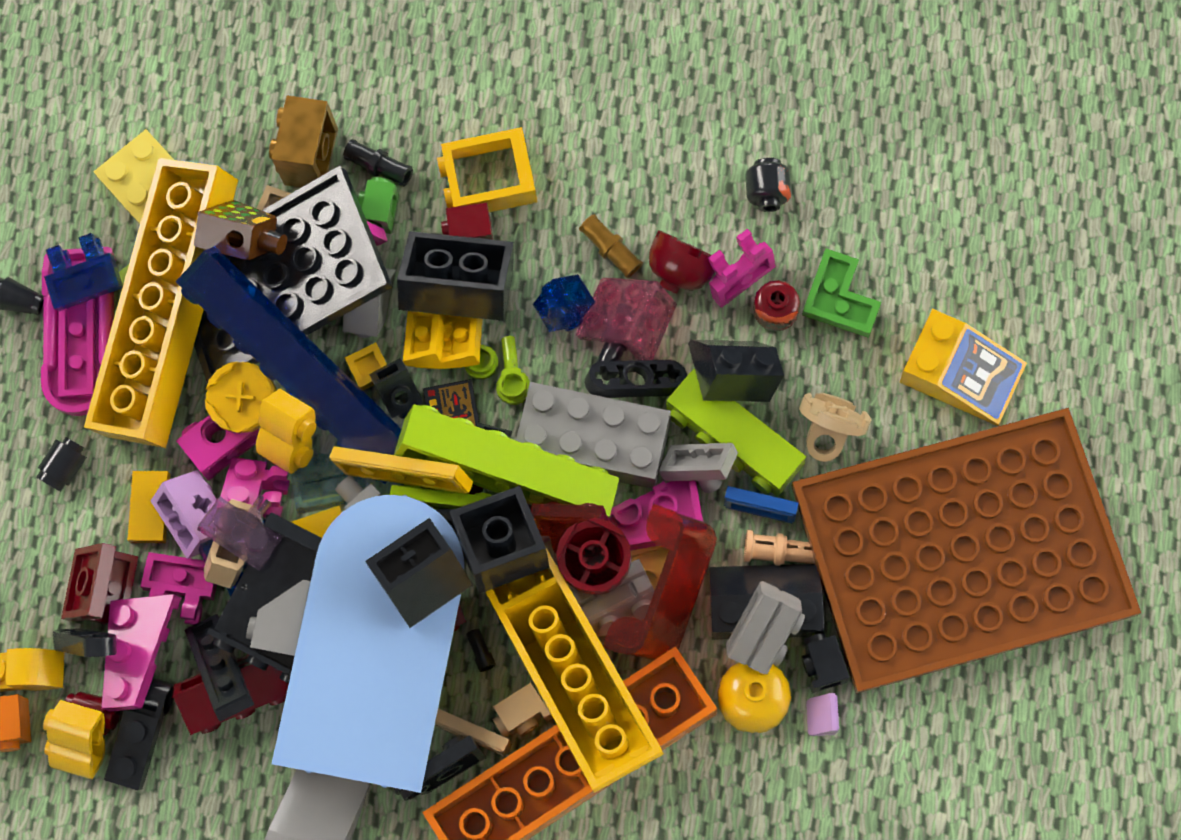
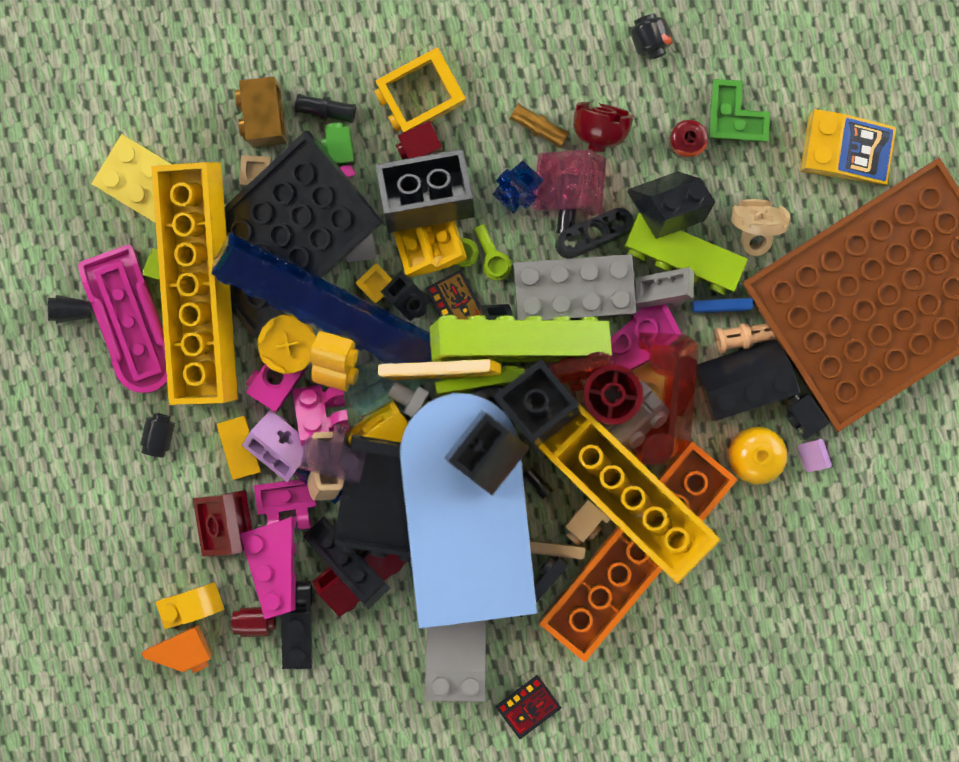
camera: 25 degrees left, 15 degrees up
(75, 739) = (251, 648): yellow brick -> none
(83, 281) = (122, 284): clear blue plate -> none
(84, 642) = (233, 573): black beam -> none
(238, 231) = (242, 211): reddish brown torso -> none
(280, 621) = (388, 517): light grey slope -> none
(737, 277) = (658, 109): dark pink plate -> none
(764, 628) = (758, 409): light grey brick -> none

